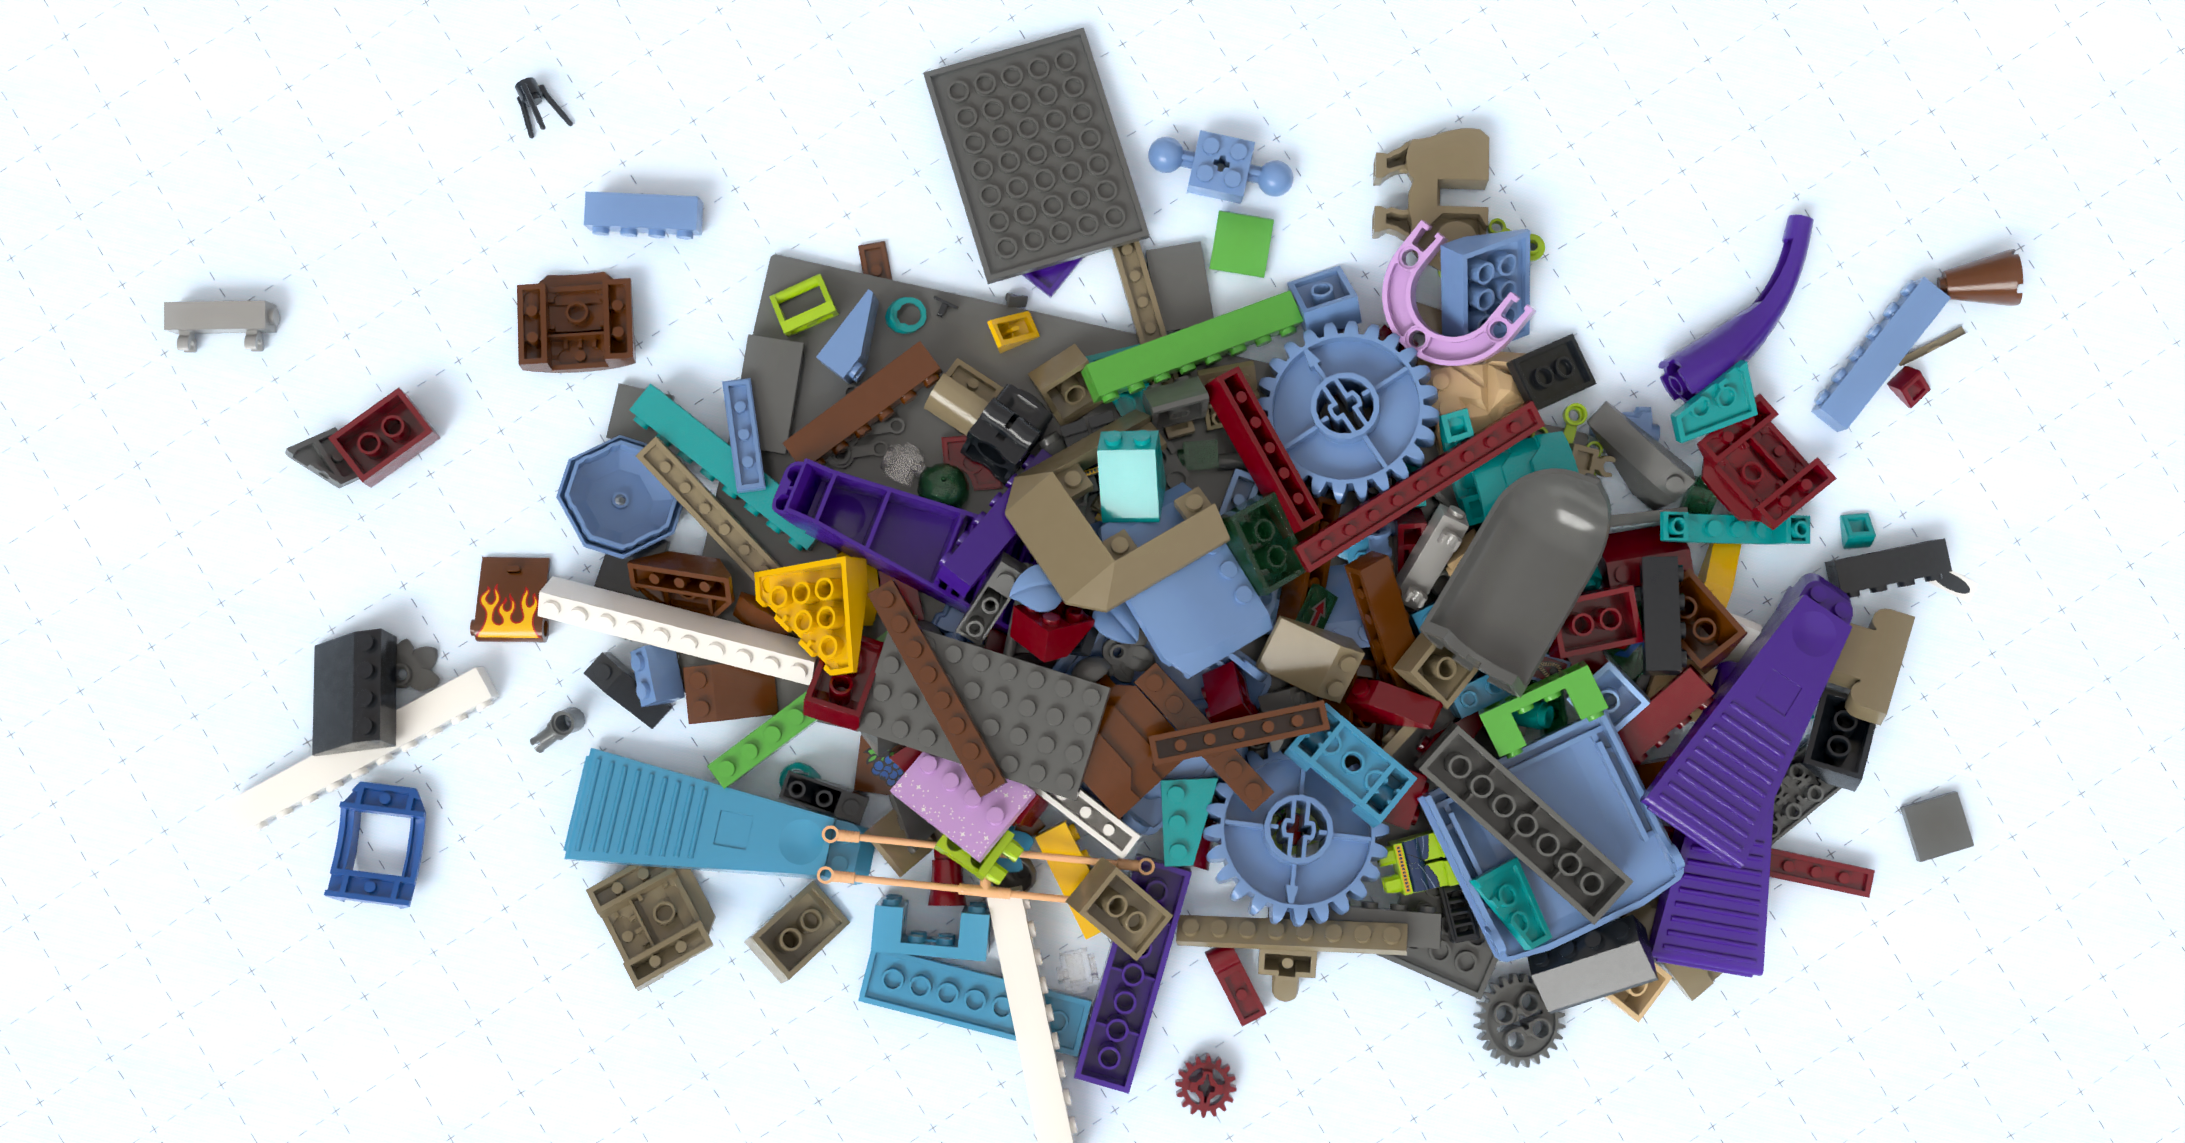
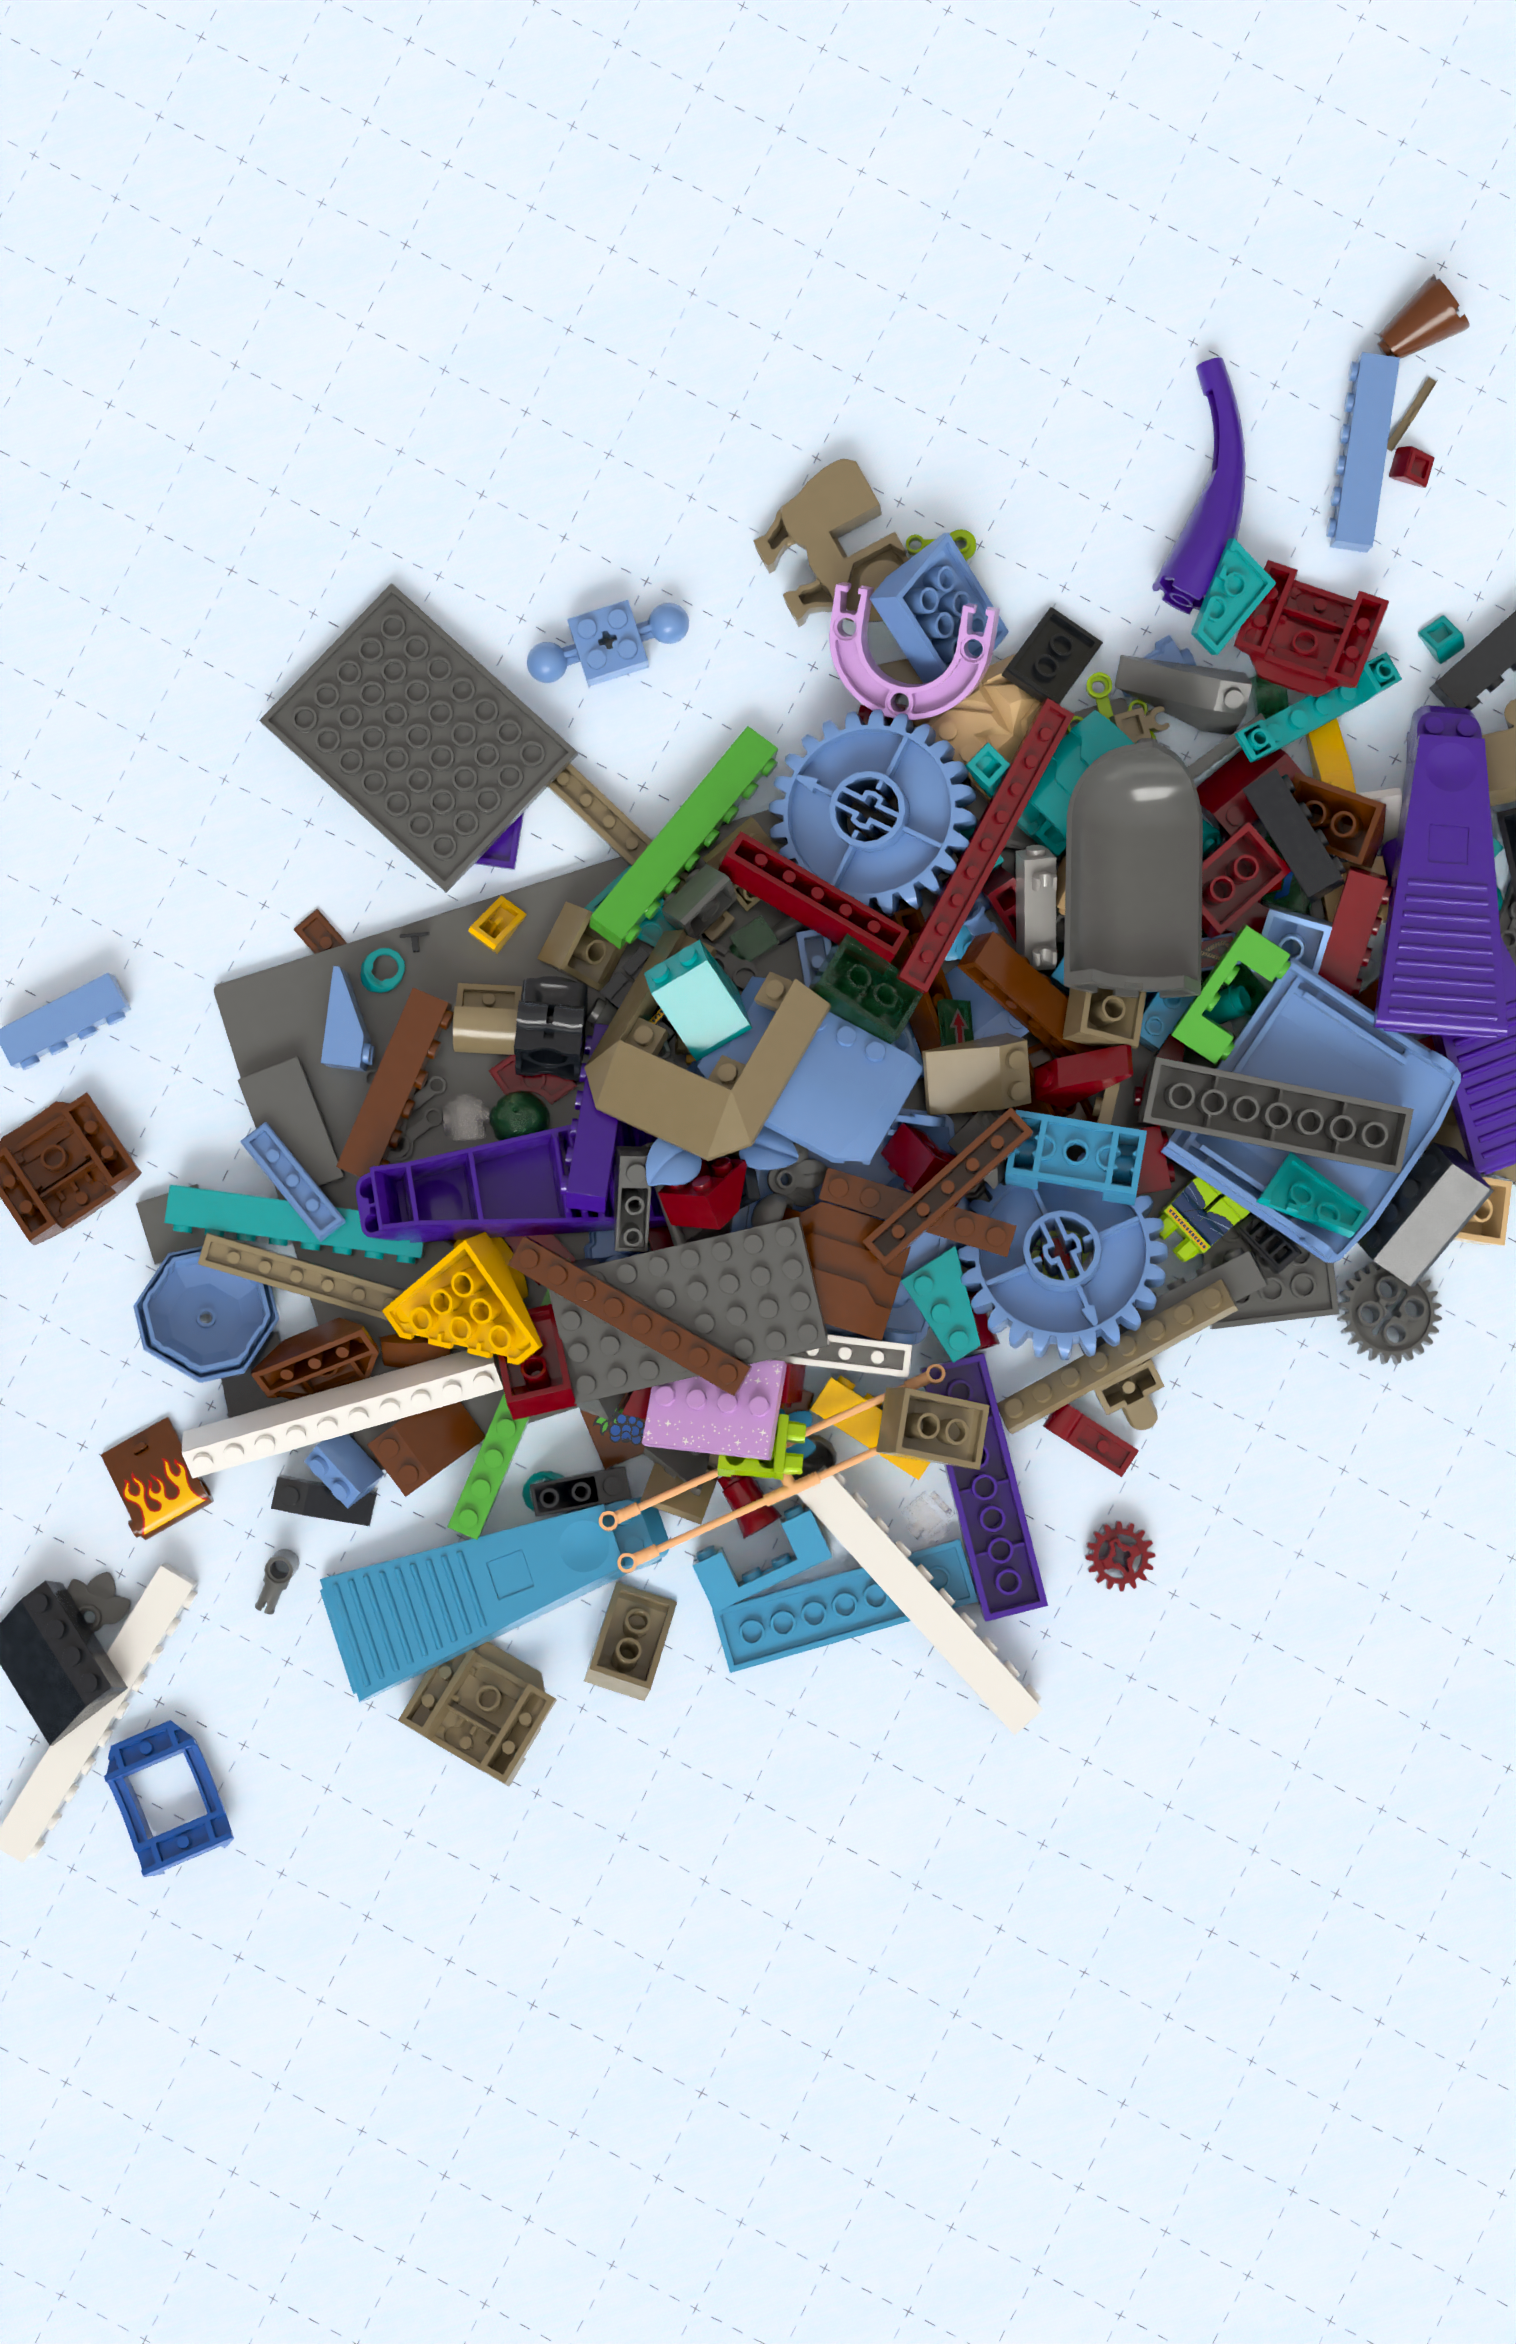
camera: 35 degrees left, 0 degrees up
(808, 318) = (289, 1027): lime tile -> none
(1015, 301) = (482, 893): dark grey piece -> none
(1180, 285) = (636, 783): dark grey tile -> none
(1241, 244) = (672, 707): bright green slope -> none
(1325, 299) = (788, 714): medium blue slope -> none

